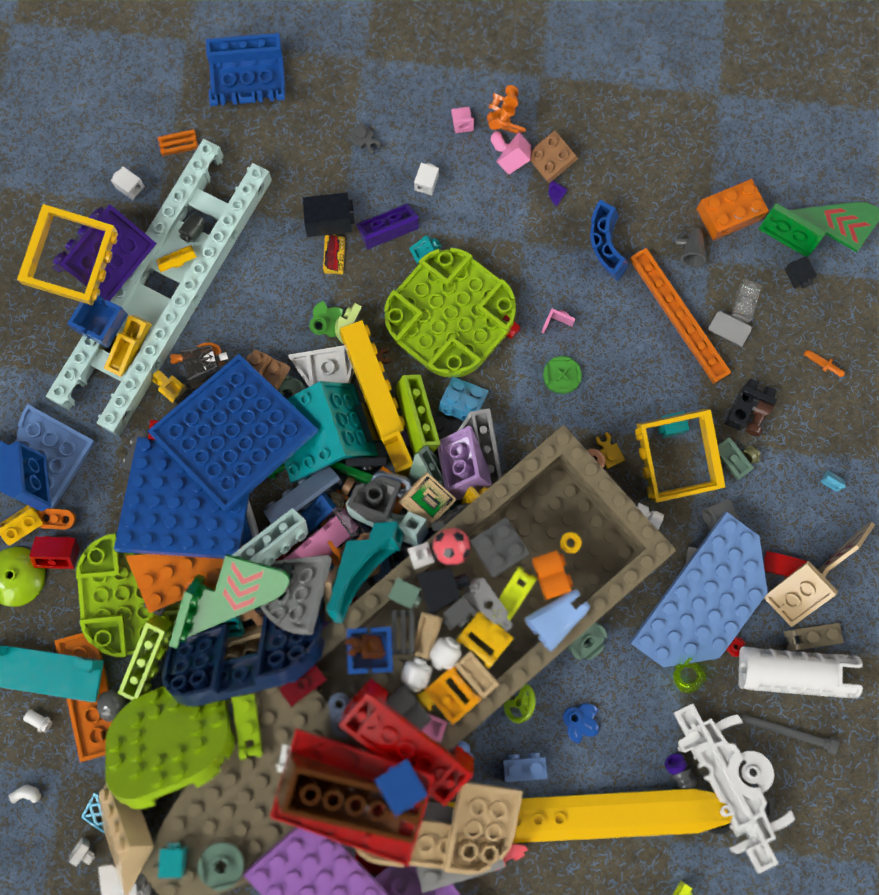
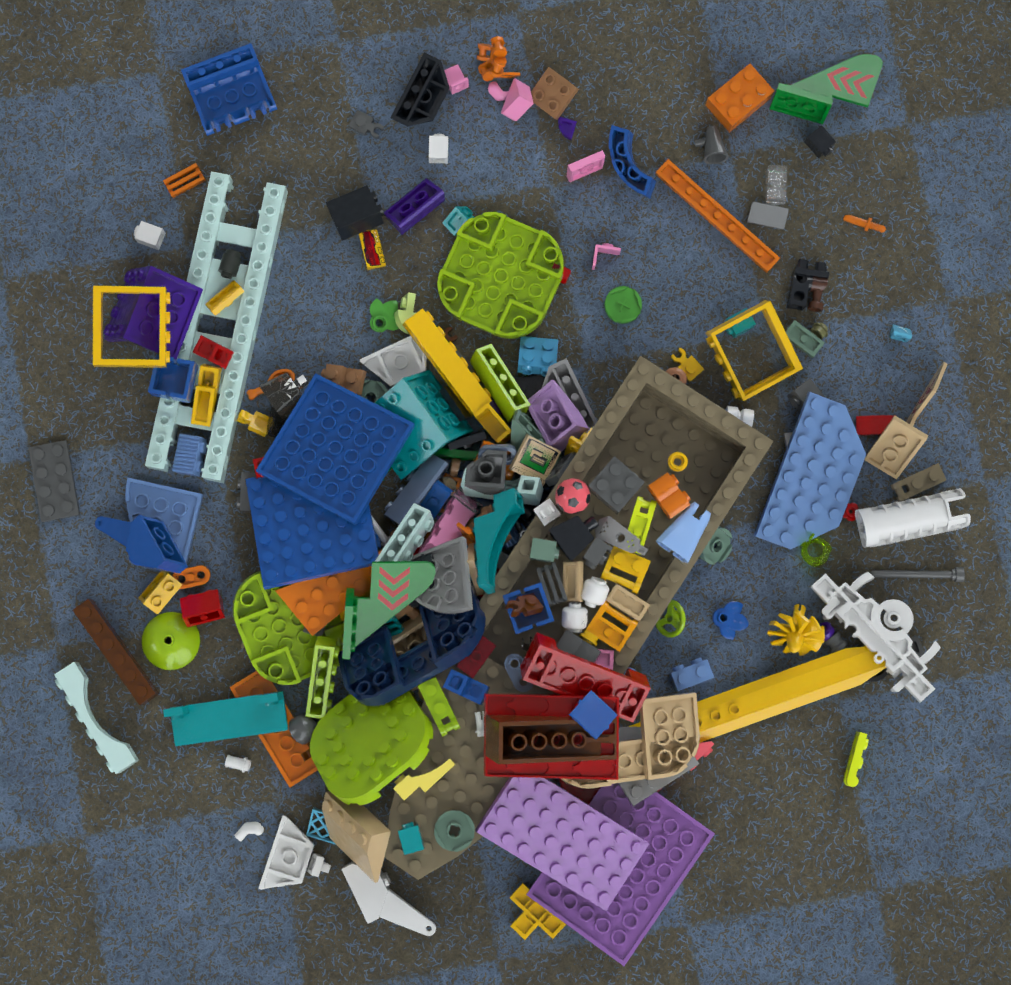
camera: 20 degrees left, 5 degrees up
(55, 834) = (287, 857): none -> white wing
(93, 399) = (189, 455): none -> medium blue brick
(148, 306) = (213, 352): none -> red slope
(206, 802) = (408, 784): none -> light yellow slope
(281, 713) = (466, 687): none -> blue slope
(426, 122) = (423, 93): none -> black wedge
(563, 231) = (585, 166): none -> bright pink tile
(649, 758) = (800, 633): none -> yellow piece

